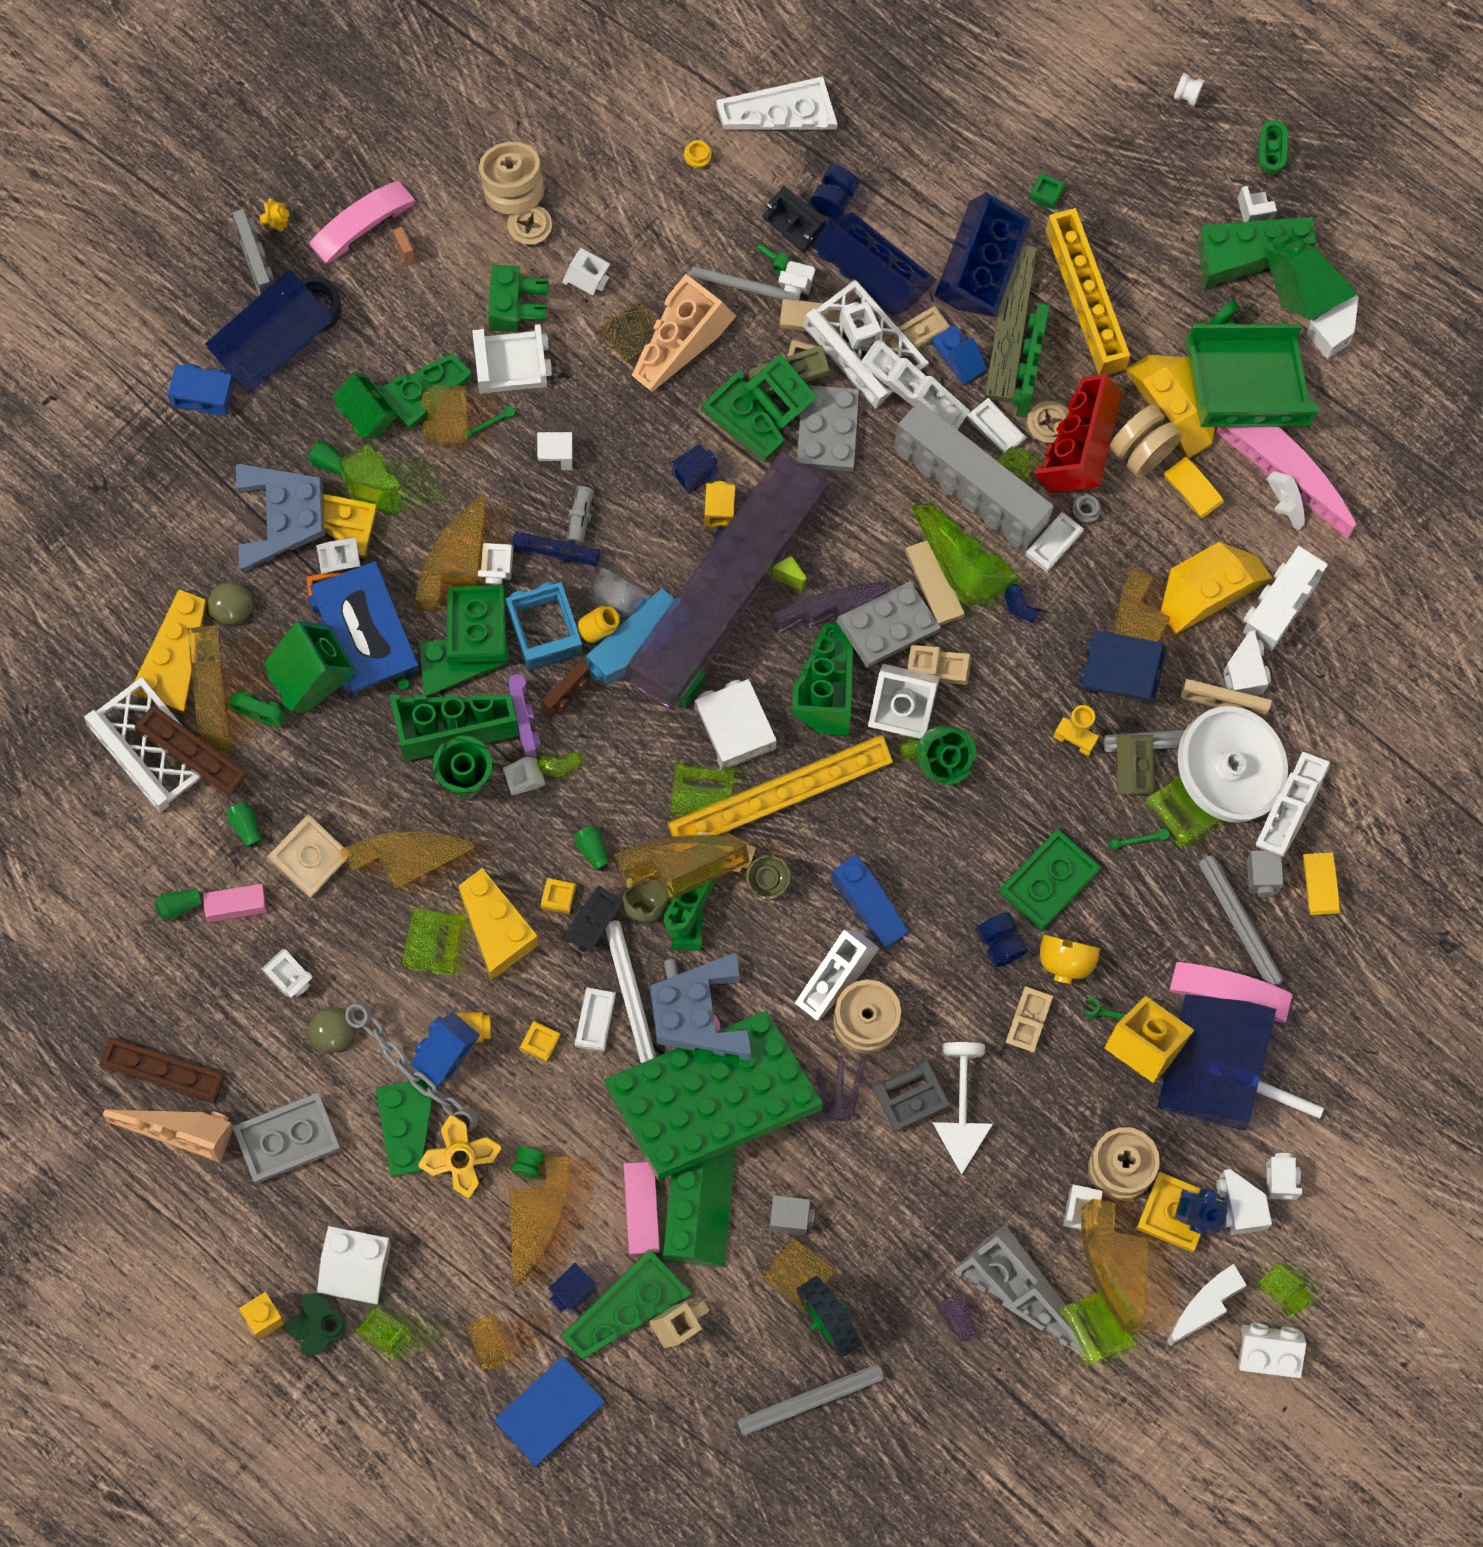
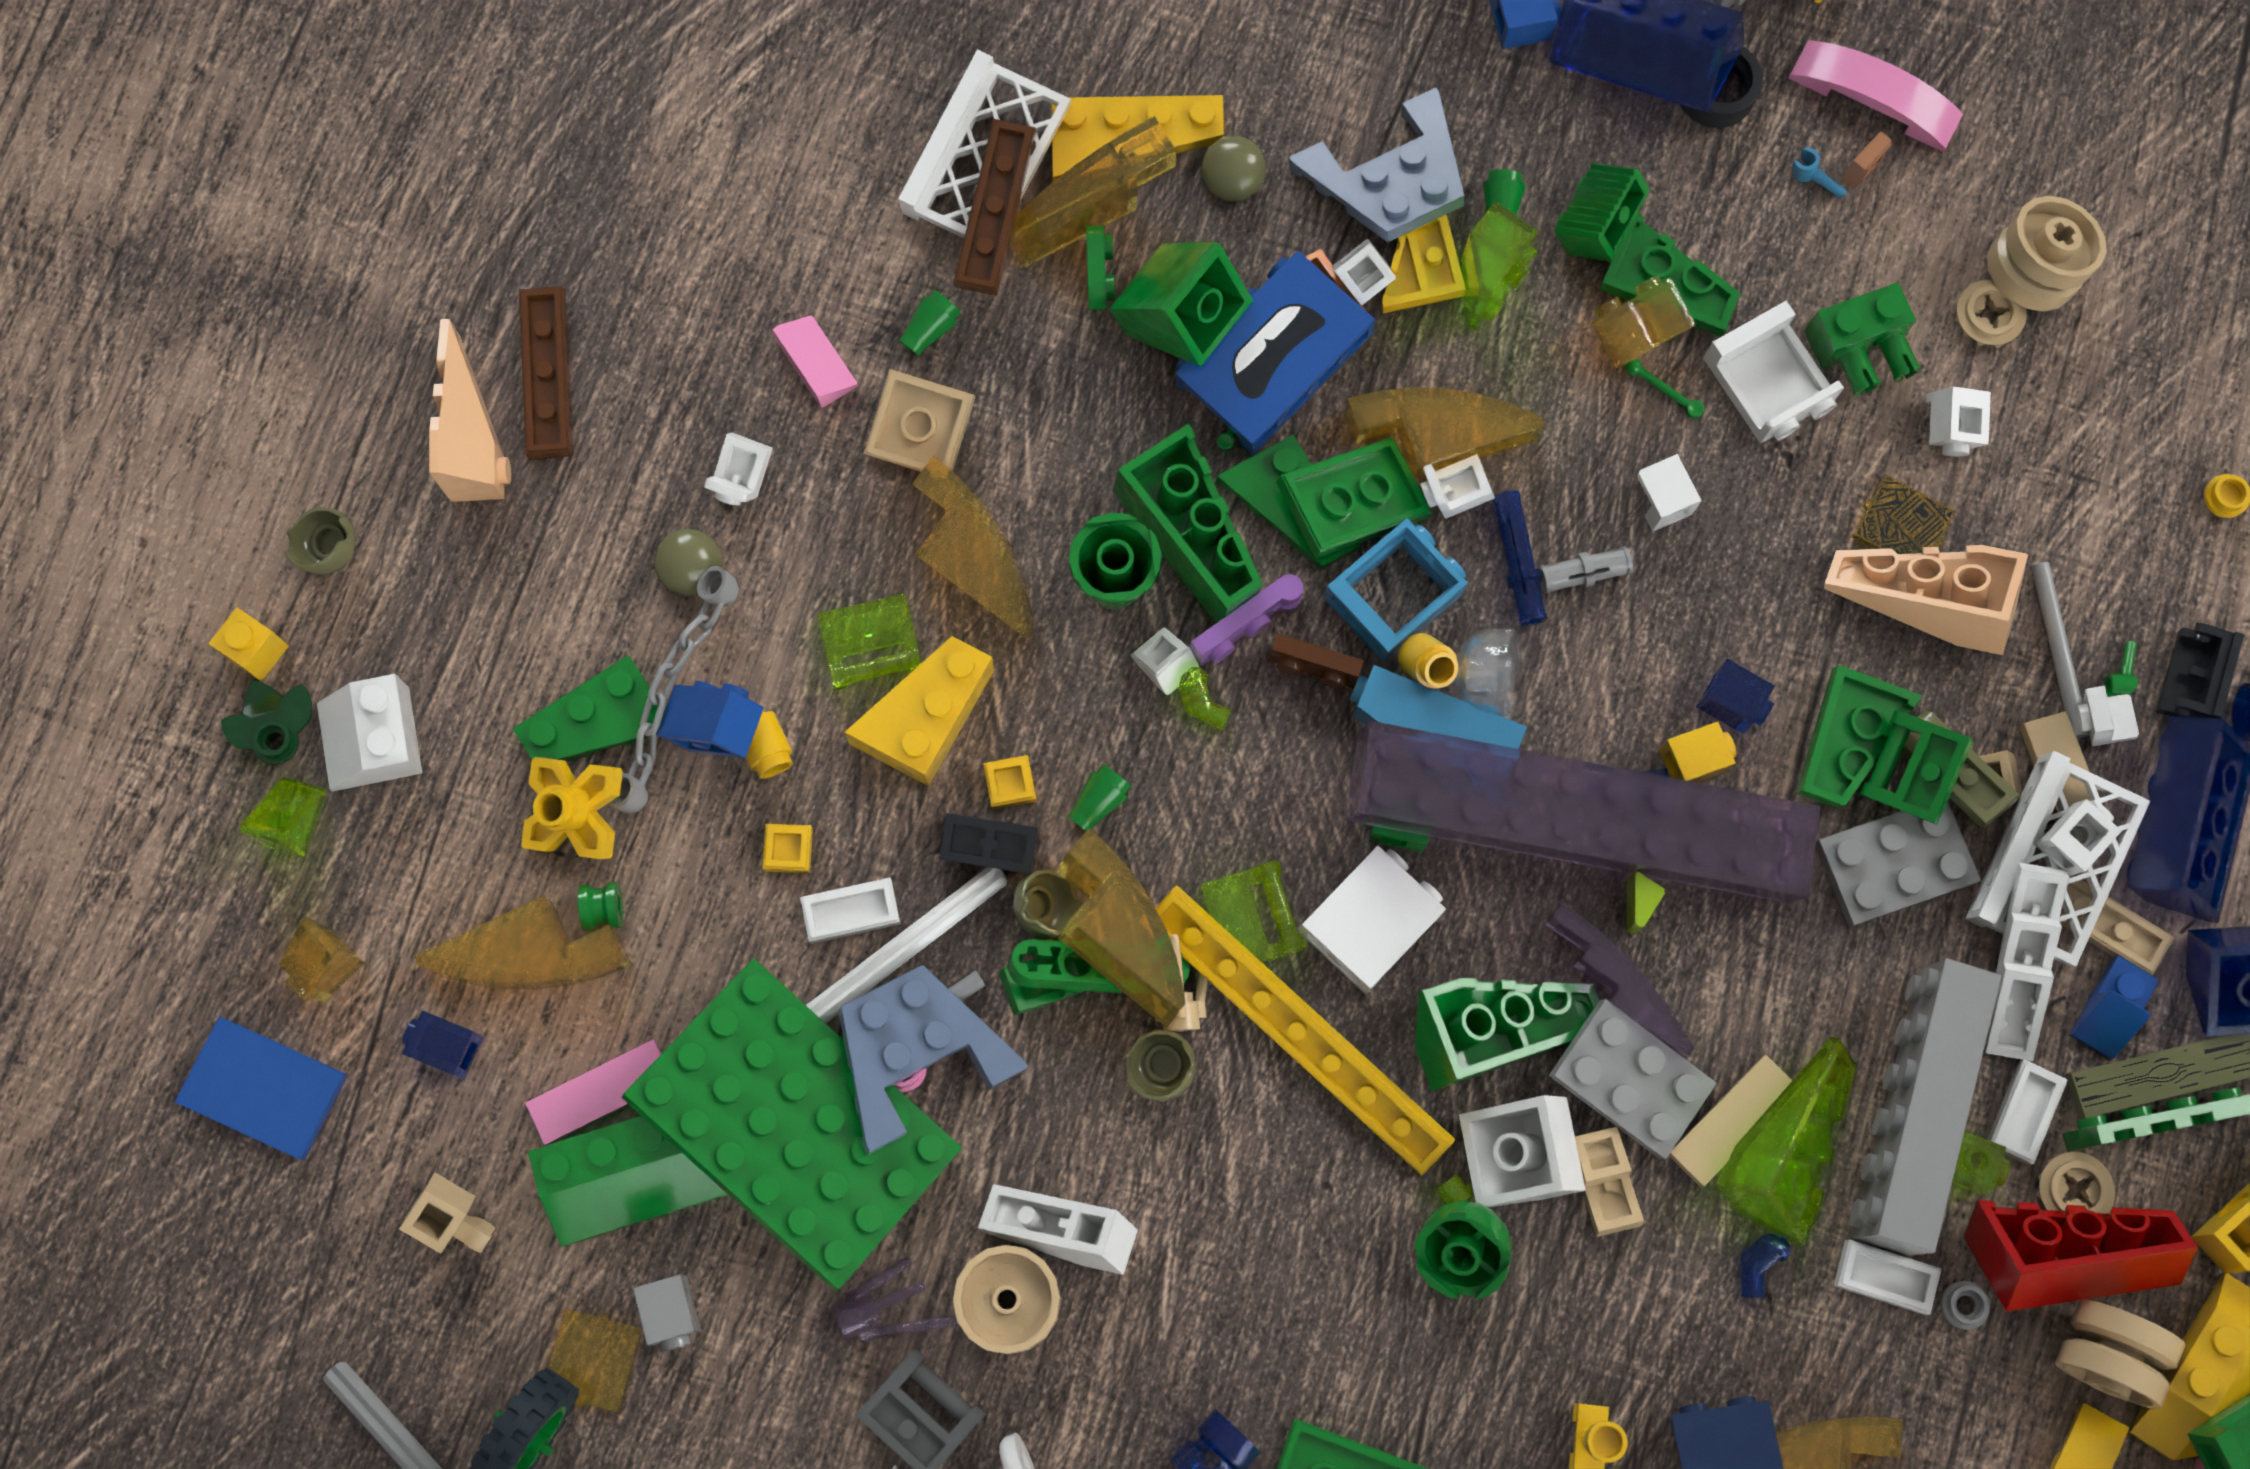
camera: 70 degrees right, 5 degrees up
(174, 904) = (779, 286): green cone -> none
(213, 1247) = (321, 541): none -> olive hair
(286, 1138) = (511, 570): light grey plate -> none
(396, 278) = (1813, 172): none -> dark azure hand
(633, 1299) = (458, 1134): green wing -> none
(868, 901) = (1188, 1231): blue slope -> none

